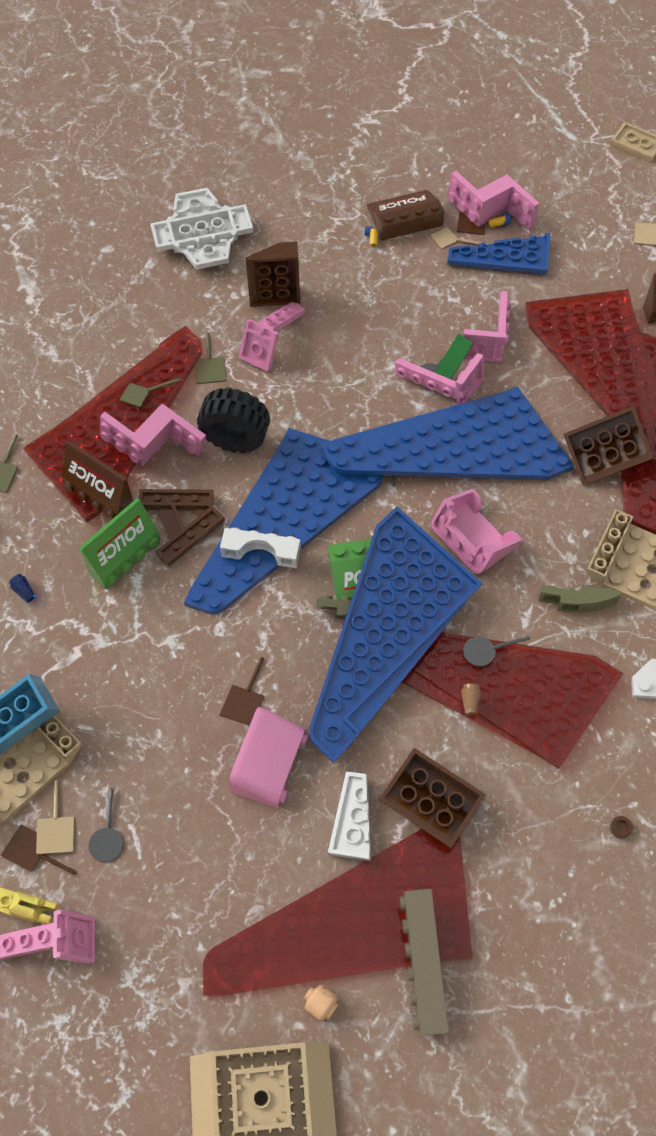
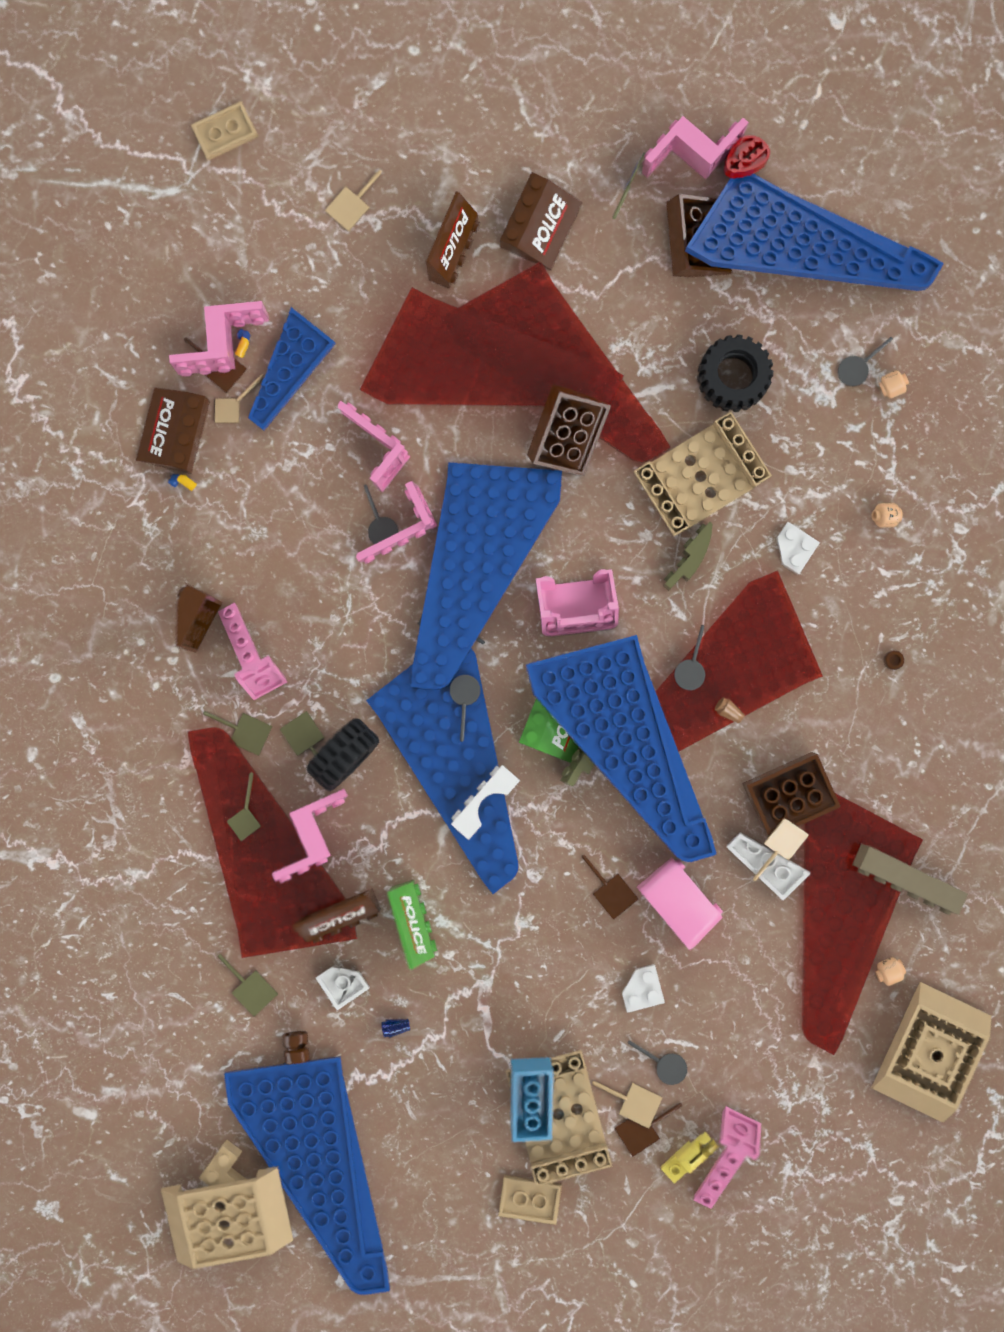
camera: 60 degrees left, 25 degrees up
(38, 531) = (342, 985): none -> white plate
(168, 775) = (643, 989): none -> white plate
(181, 538) = (426, 863): reddish brown plate -> none
(201, 228) = (71, 648): white plate -> none
(342, 488) = (464, 691): none -> dark grey piece
(386, 815) = (784, 841): none -> tan piece
(454, 357) = (390, 506): green tile -> none

